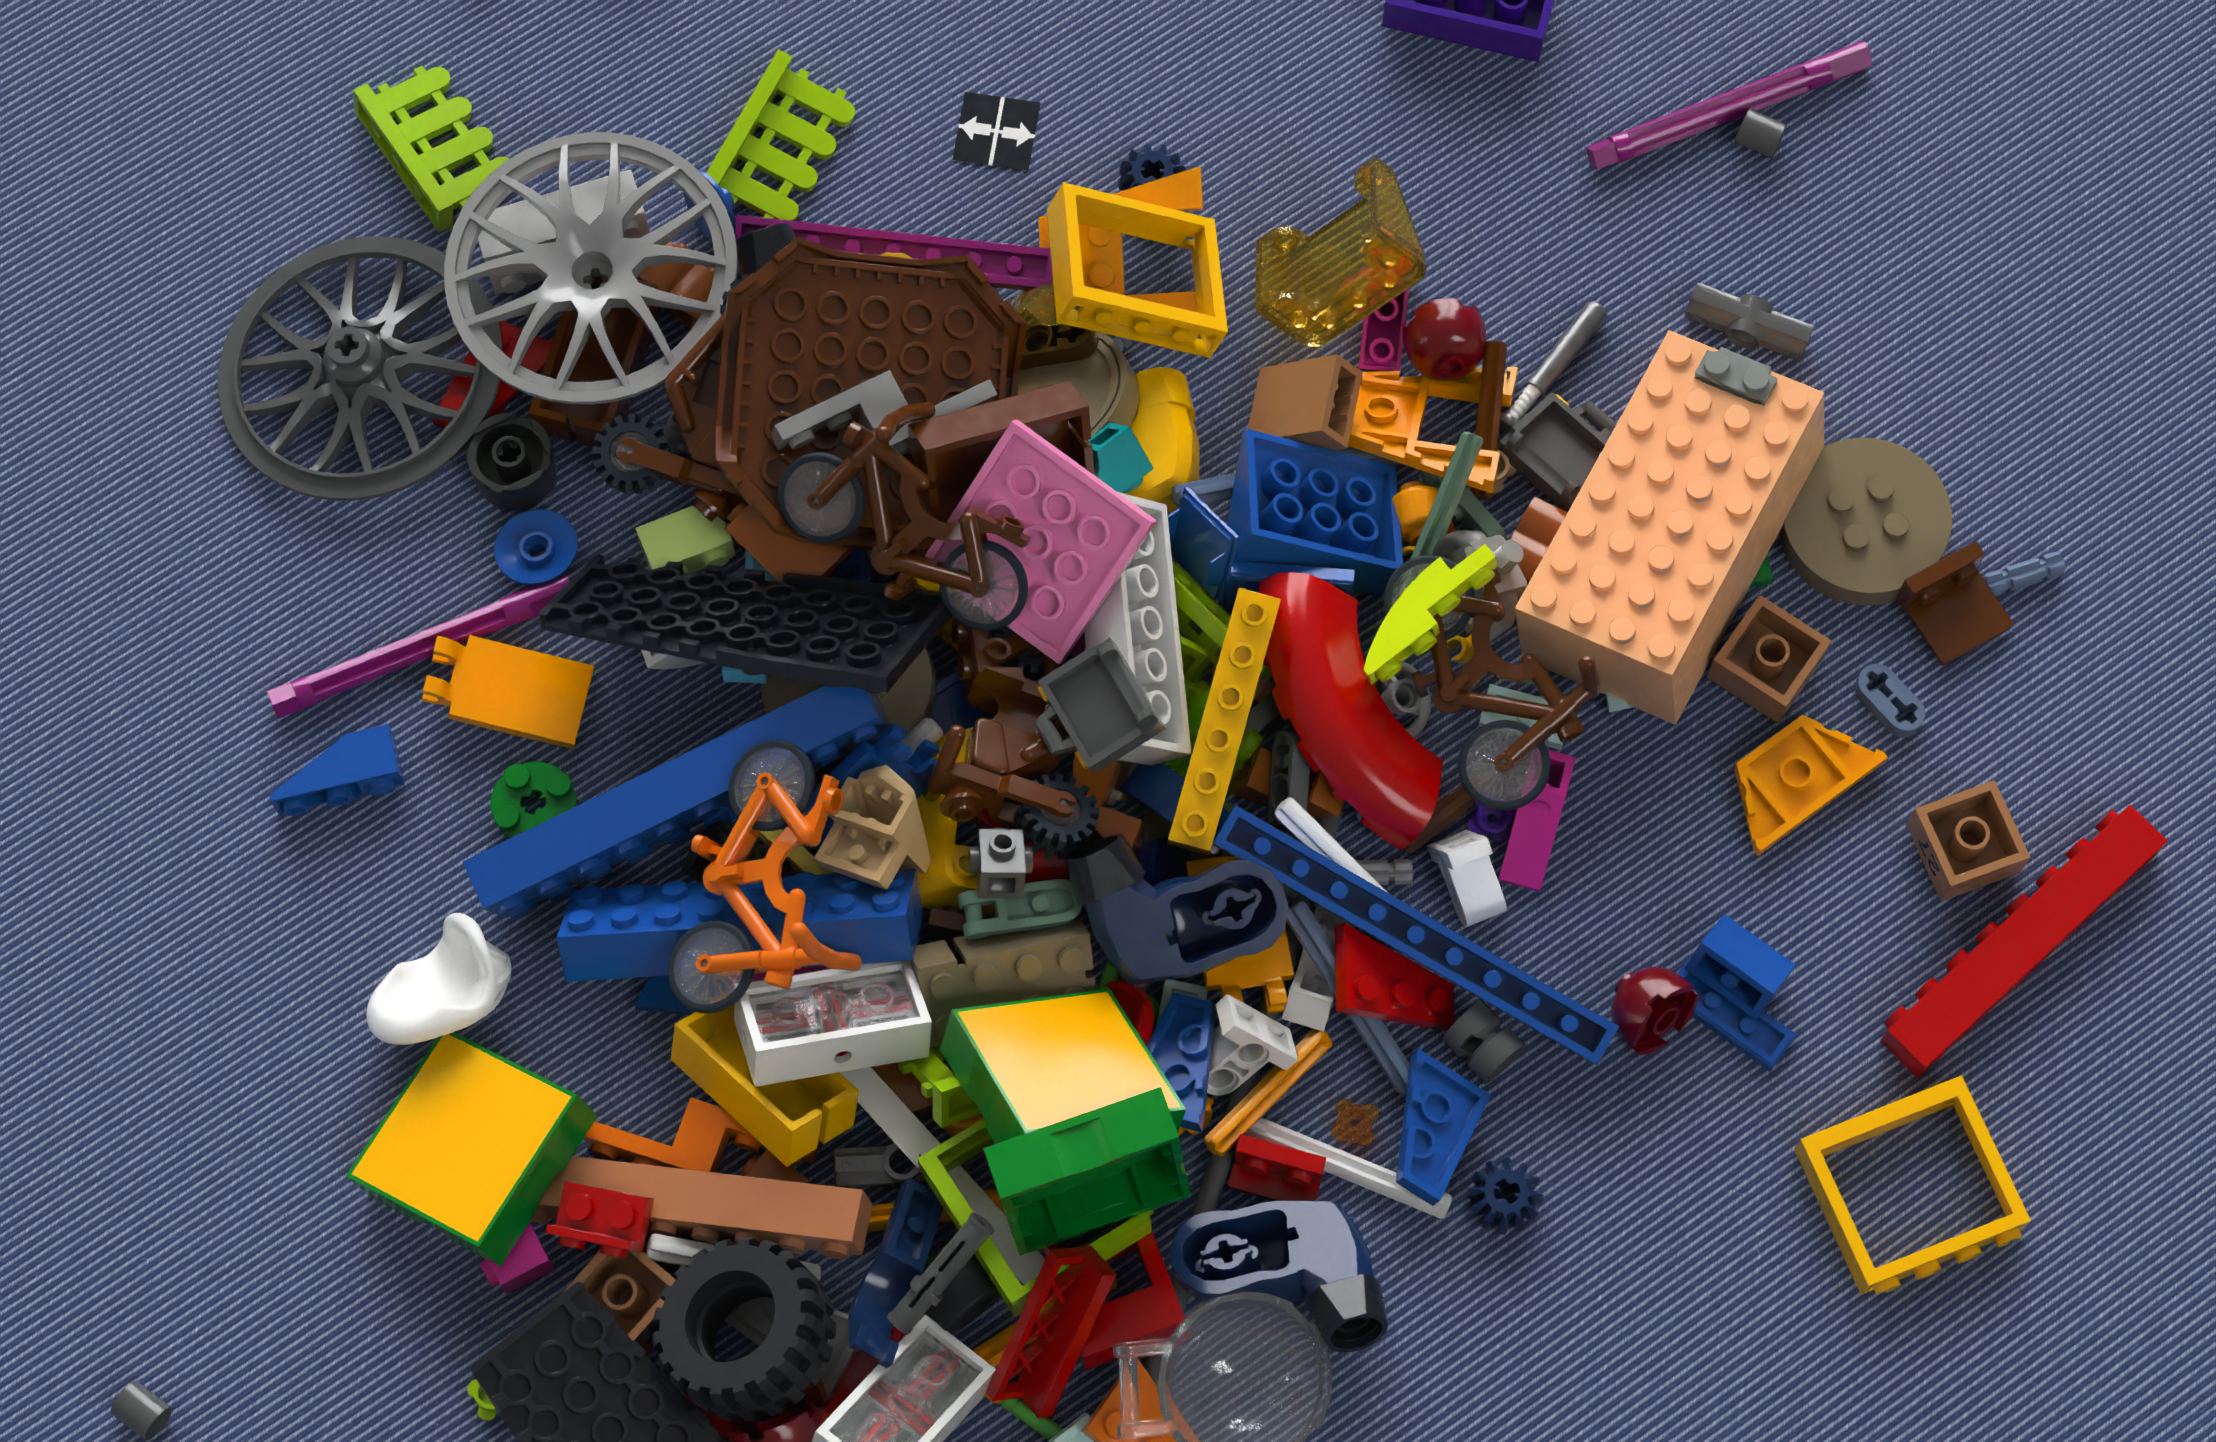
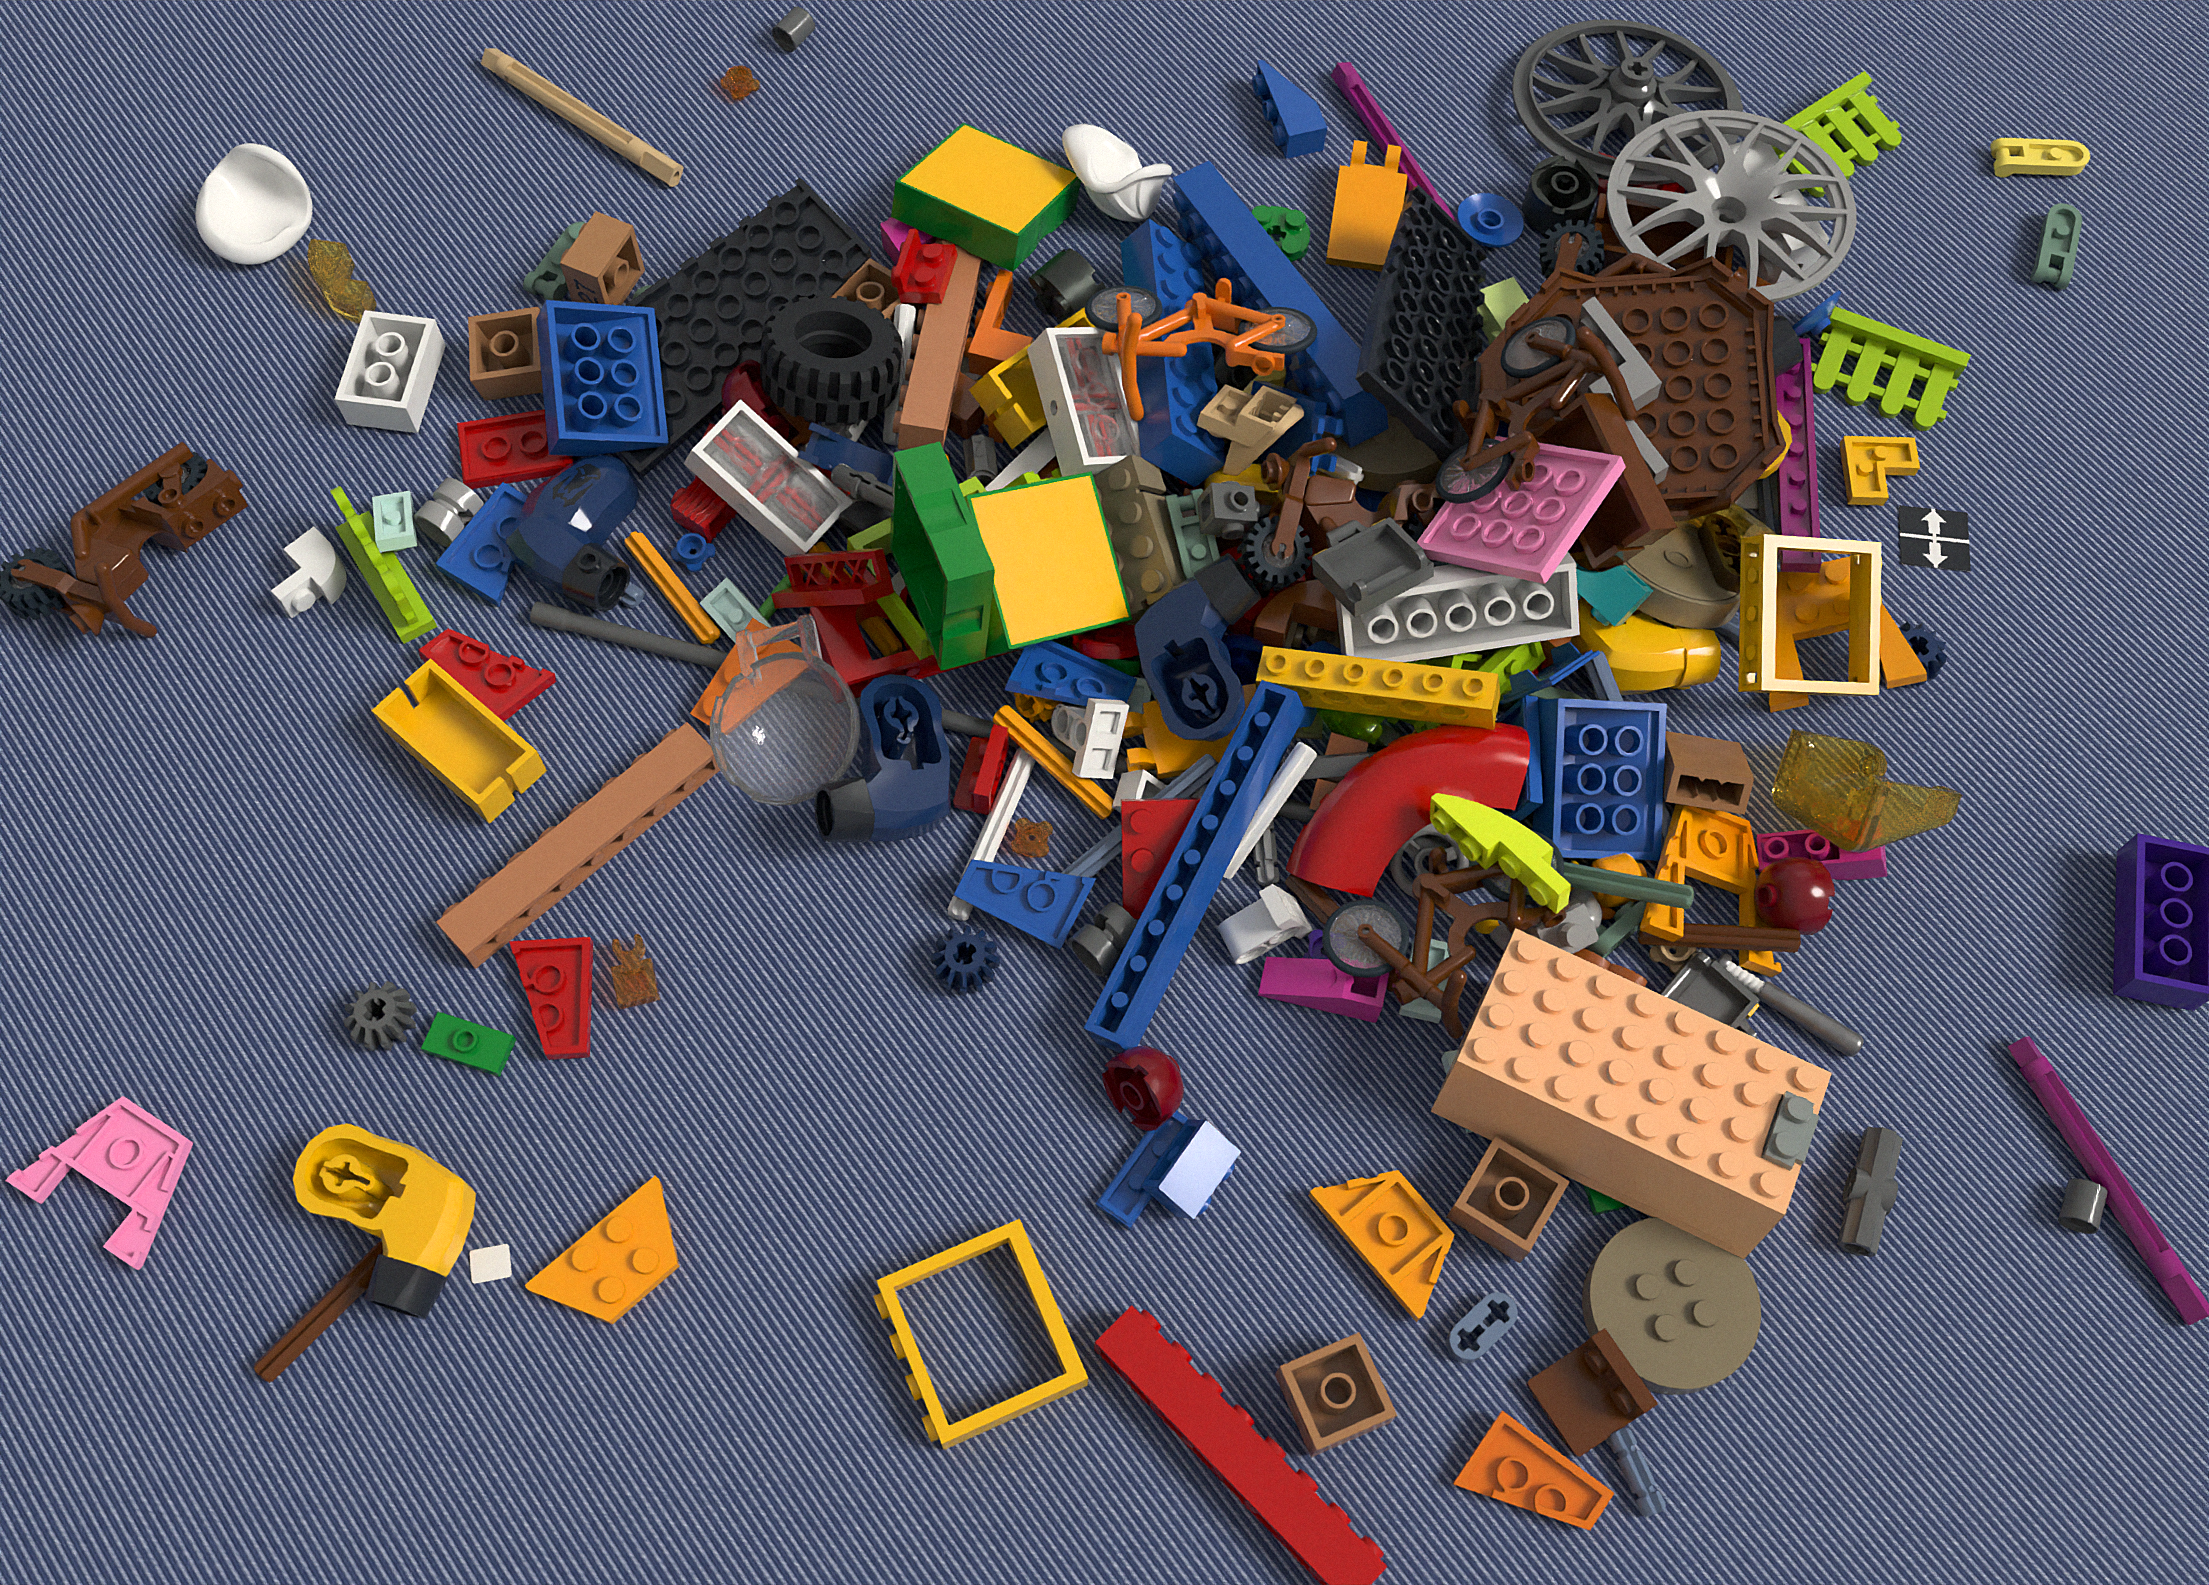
camera: 85 degrees right, 5 degrees down
(619, 1051) = (1064, 284): none -> pearl dark grey brick
(901, 183) = (1869, 460): none -> yellow plate
(2030, 669) = (1531, 1474): none -> orange wing

